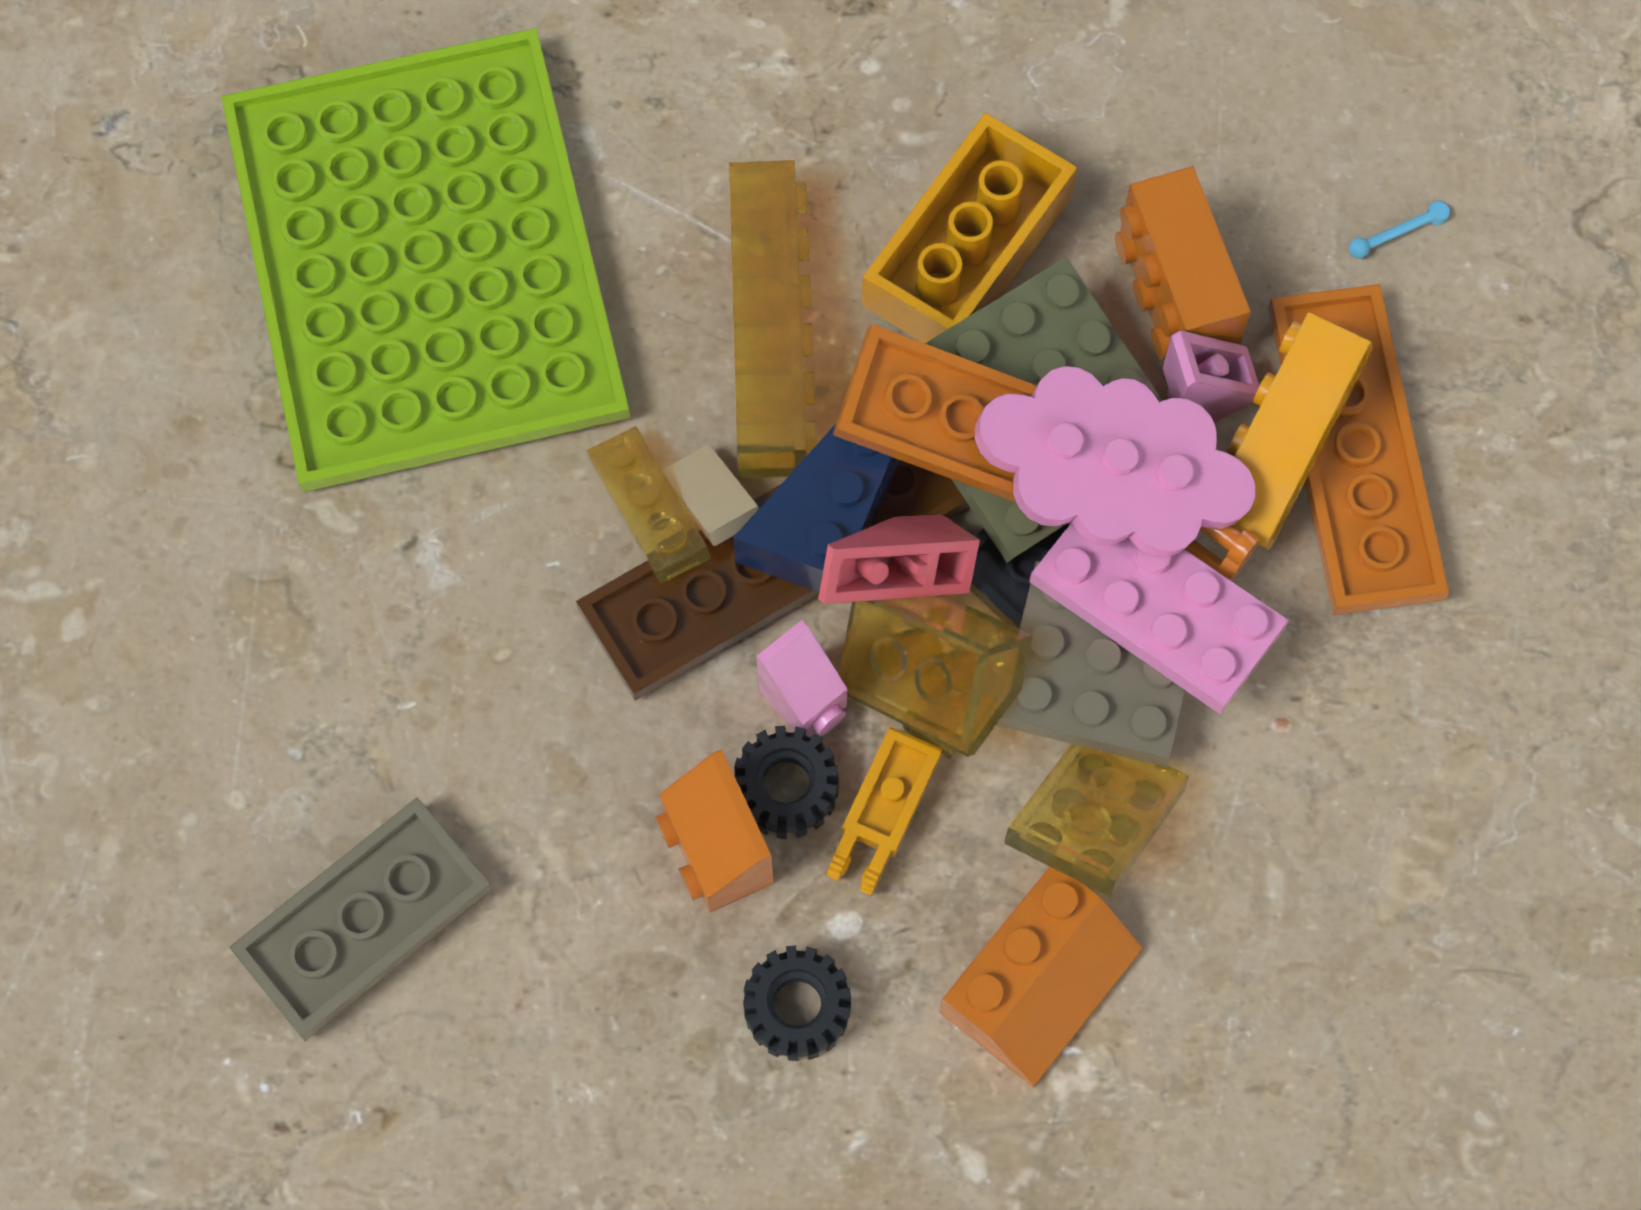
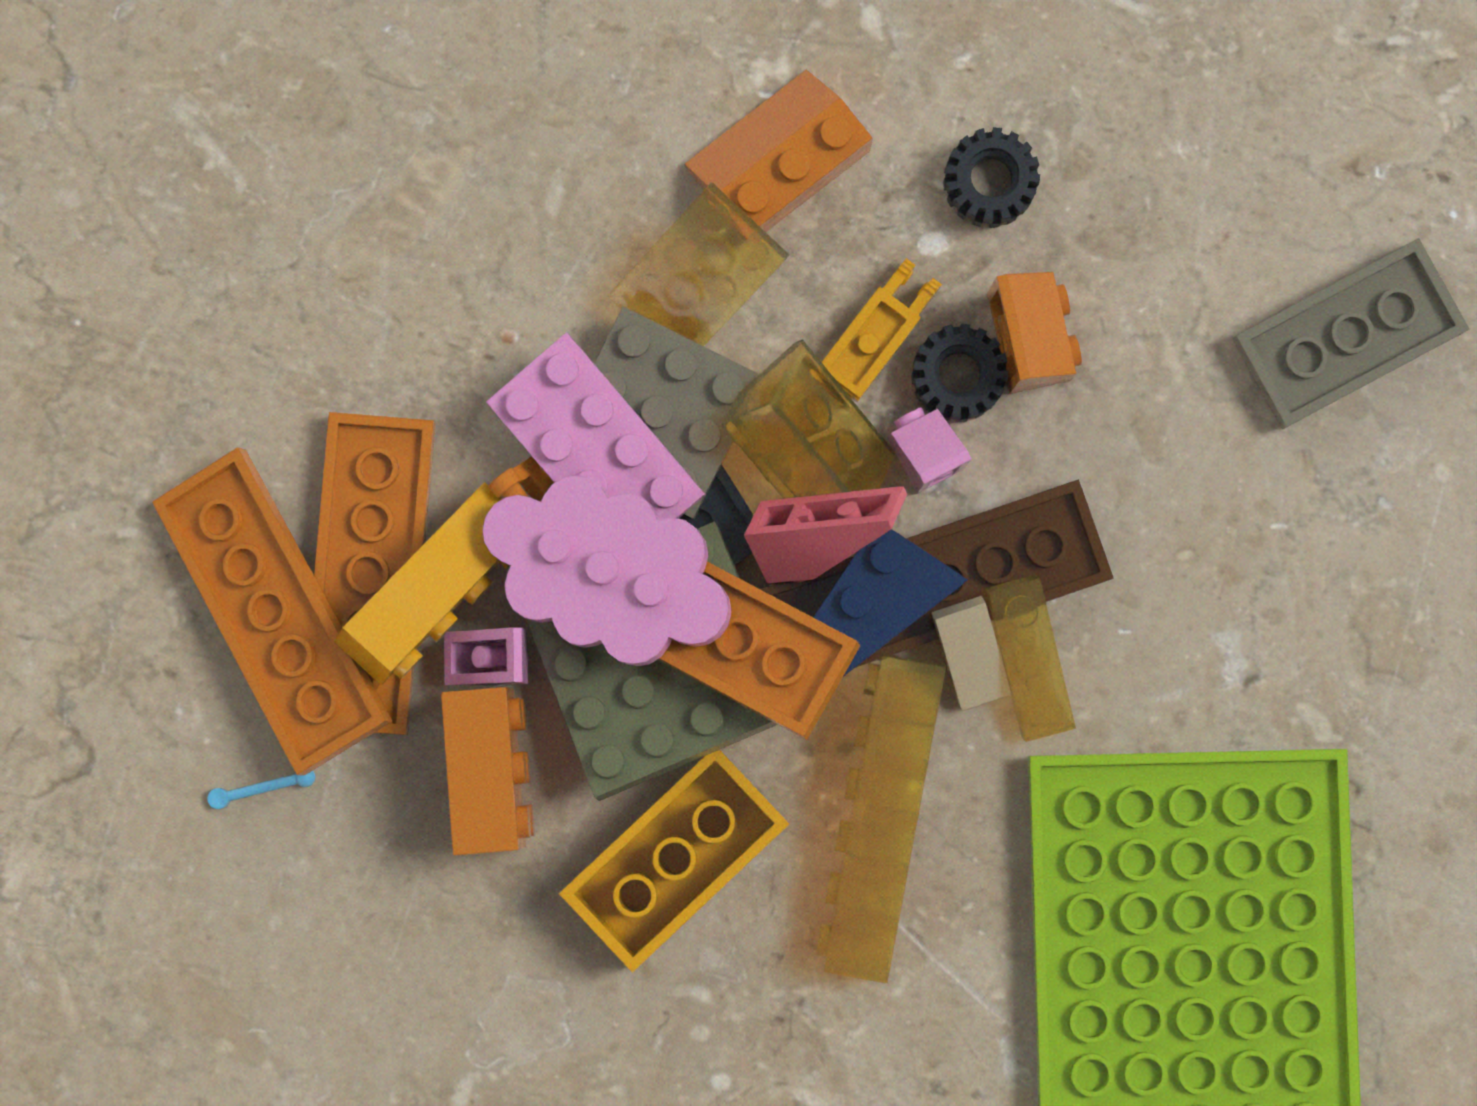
camera: 170 degrees left, 15 degrees up
(1449, 382) = (271, 611): none -> orange plate

